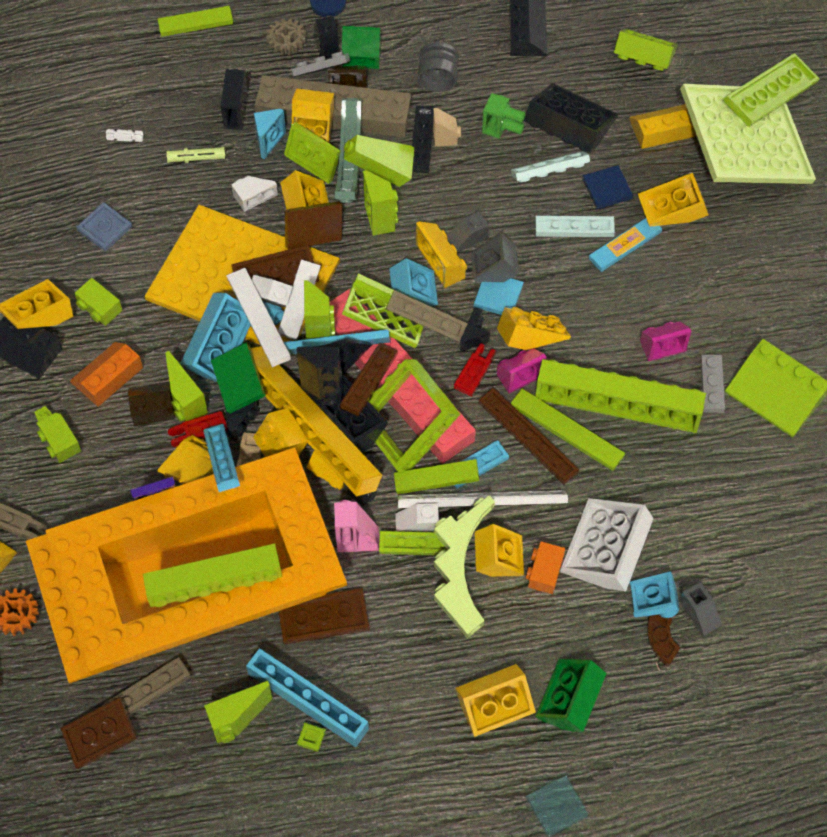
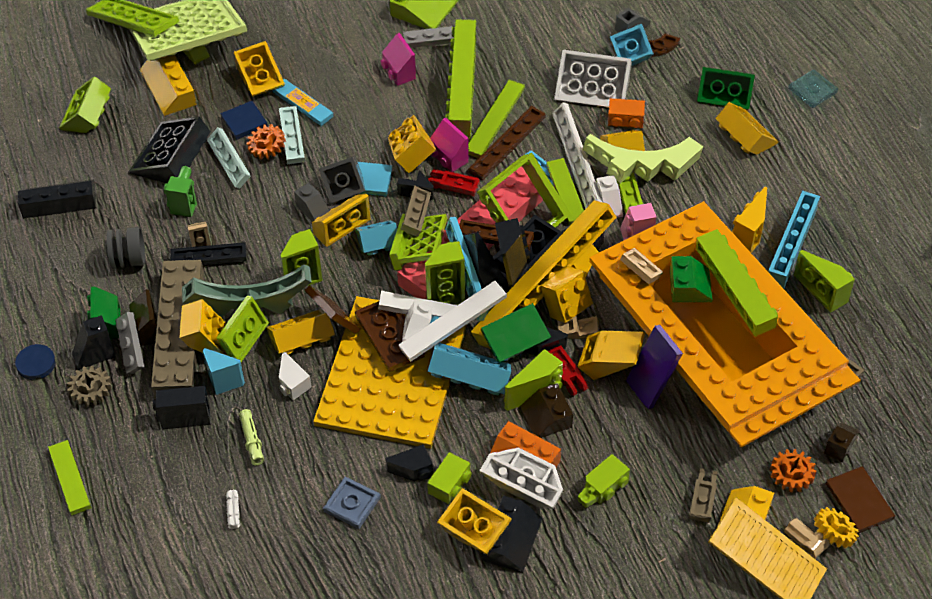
camera: 100 degrees left, 10 degrees down
(36, 673) = (841, 441): none -> dark brown slope
(73, 359) = (524, 476): none -> white wedge
(99, 733) = (879, 378): reddish brown tile -> none
(125, 277) = (411, 464): none -> black slope
(221, 458) = (610, 315): medium azure tile -> none
(228, 530) = (689, 280): none -> green slope
(260, 487) = (641, 266): none -> tan plate
(311, 737) = (819, 240): lime tile -> none
(339, 657) = (750, 223): none -> yellow slope
(381, 157) = (245, 268): lime slope -> none
(565, 199) = (266, 141): none -> orange gear

